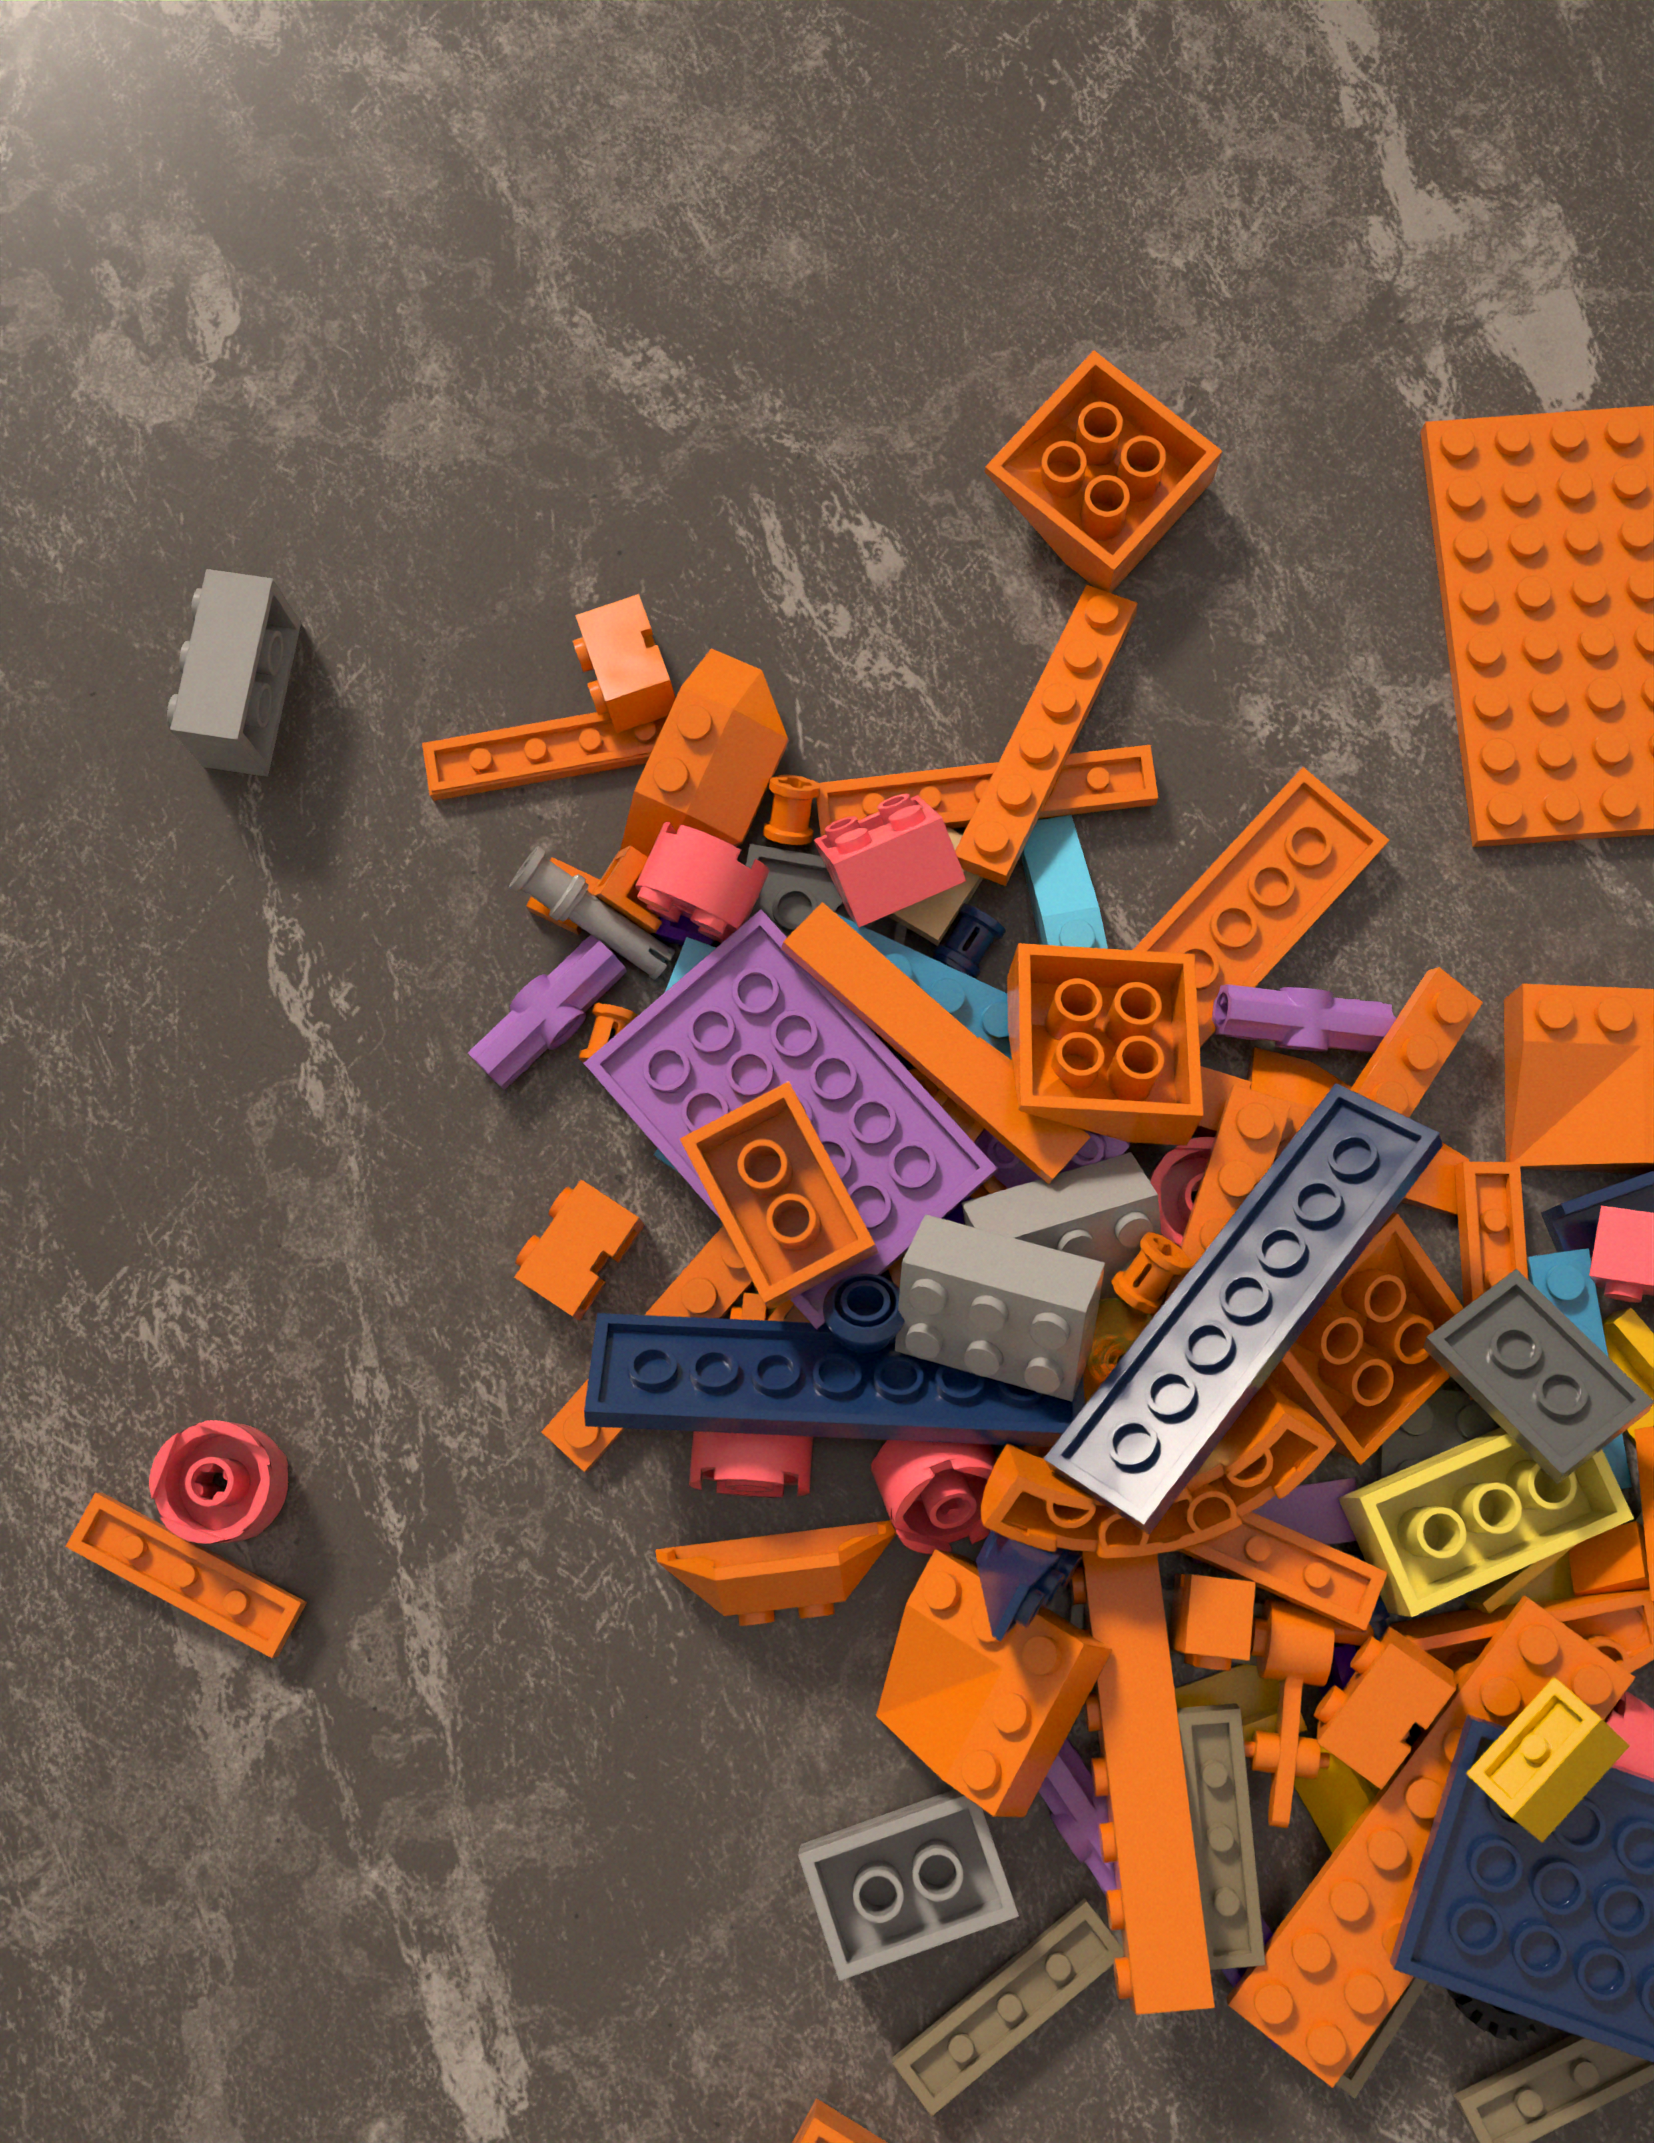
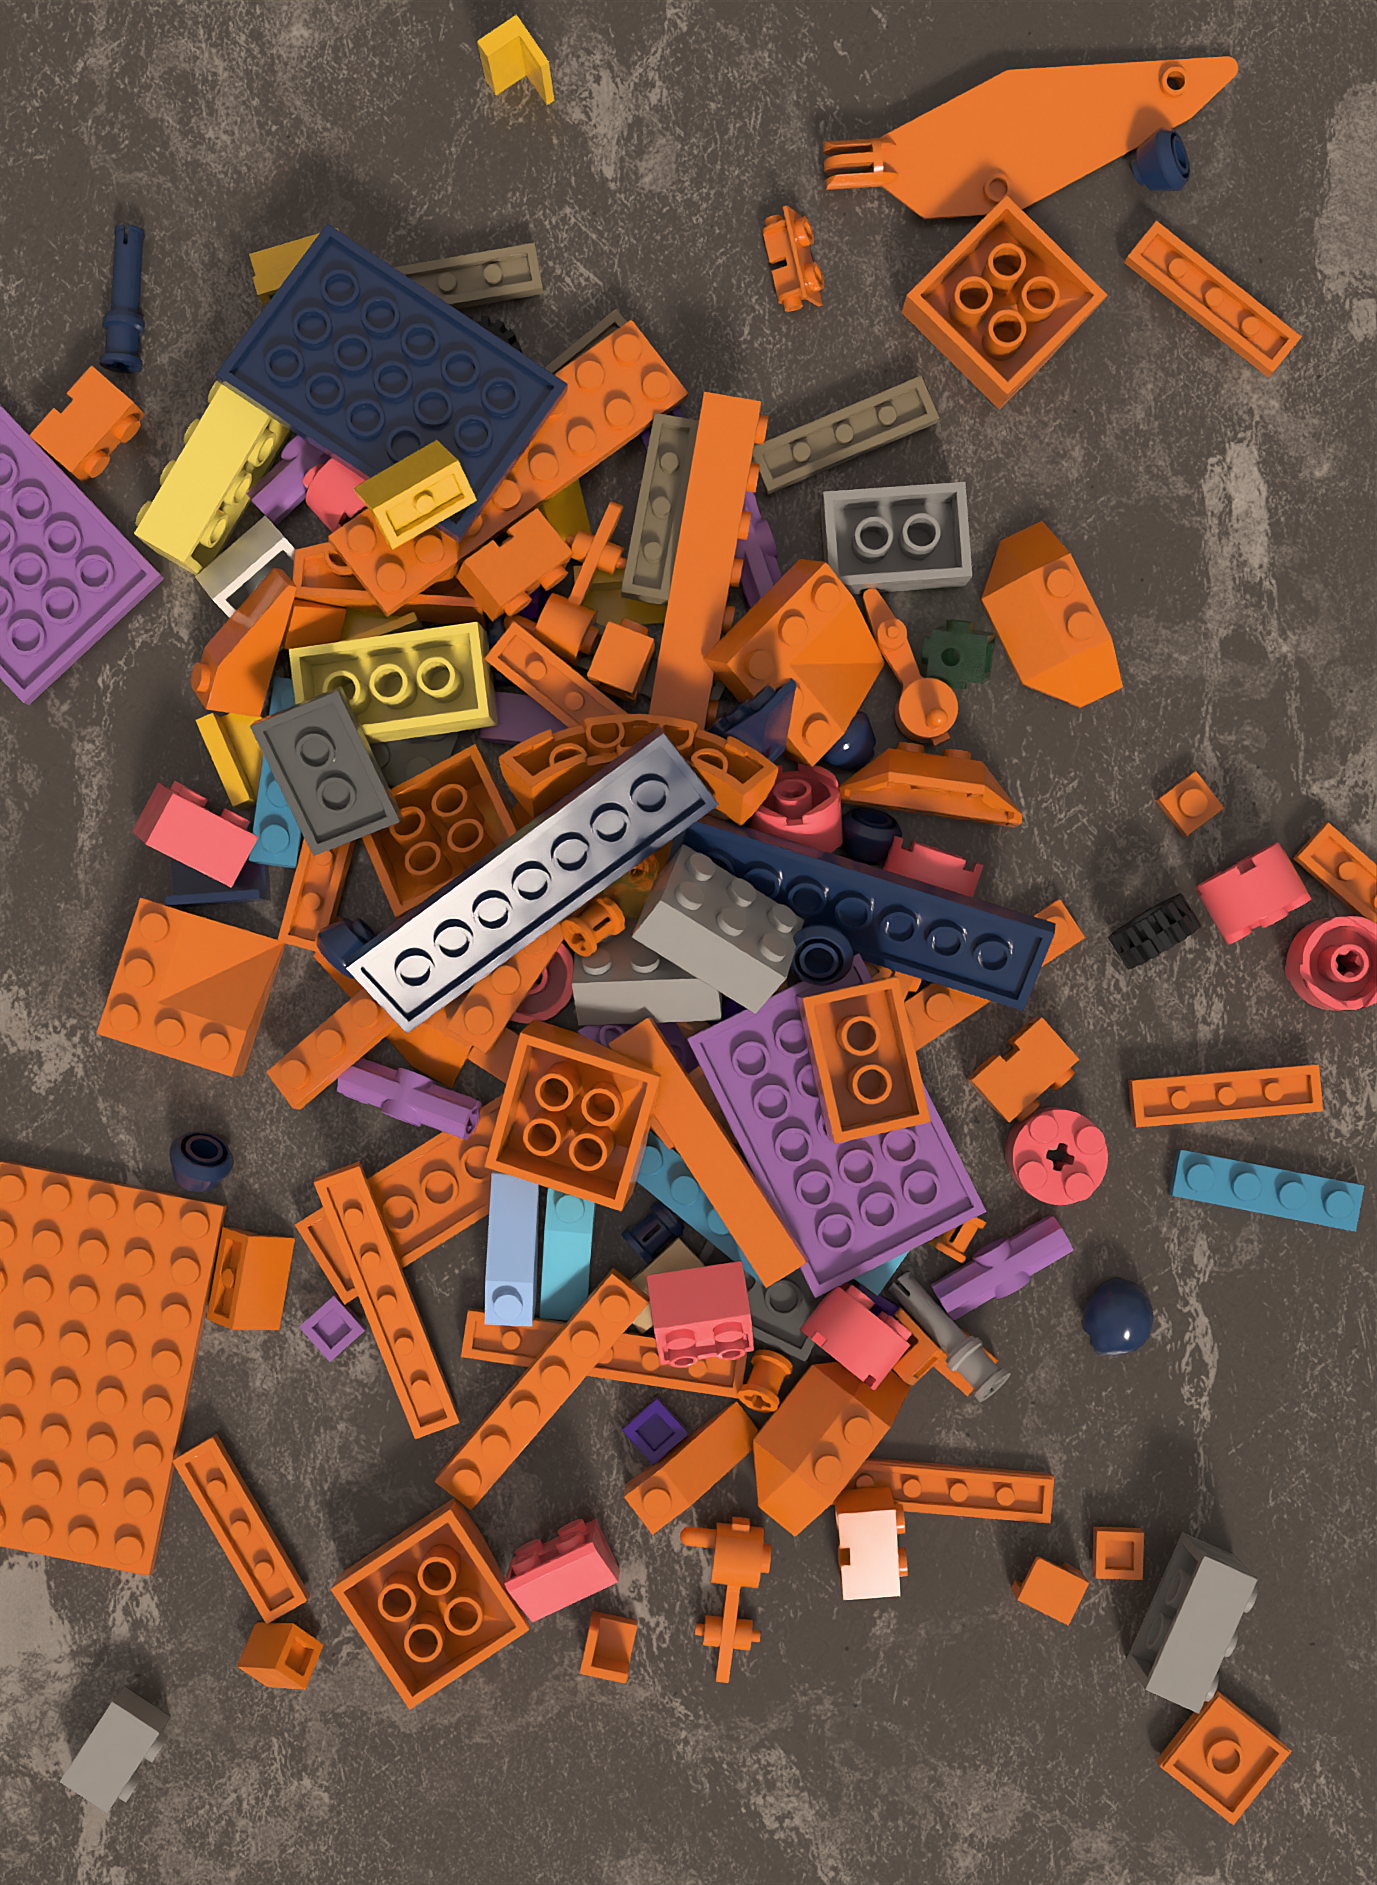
camera: 175 degrees left, 10 degrees up
(167, 545) = (1223, 1756): none -> orange plate
(253, 1187) = (1266, 1190): none -> dark azure plate
(326, 1285) = (1225, 1095): none -> orange plate
(336, 730) = (1118, 1553): none -> orange plate
(347, 1540) = (1253, 893): none -> coral brick
(396, 992) = (1118, 1317): none -> dark blue hair
(402, 669) = (1052, 1589): none -> orange panel
(450, 1636) = (1189, 804): none -> orange plate
(458, 1459) = (1154, 931): none -> black tyre
(491, 1134) = (1069, 1179): none -> coral brick
(684, 1829) = (1049, 619): none -> orange wedge
(771, 604) = (736, 1562): none -> orange piece
(787, 1749) = (975, 653): none -> clear green brick
(812, 1671) = (925, 704): none -> orange piece
(840, 1487) = (868, 834): none -> dark blue cone
(850, 693) = (691, 1467): none -> orange slope
(886, 1594) = (855, 746): none -> dark blue cone
(888, 479) = (608, 1647): none -> orange panel
(902, 725) = (655, 1430): none -> dark purple plate
(966, 545) = (561, 1570): none -> coral slope
(1127, 869) = (512, 1251): none -> light blue slope
(1251, 377) = (280, 1655): none -> orange panel
(1259, 784) = (386, 1299): none -> orange plate
(1306, 739) = (333, 1327): none -> medium lavender plate
(1339, 498) = (241, 1528): none -> orange plate
(1400, 235) = (115, 1750): none -> light grey brick
(1418, 766) = (250, 1280): none -> orange panel
(1443, 1182) = (343, 939): none -> dark blue cone
(1524, 883) = (200, 1161): none -> dark blue cone

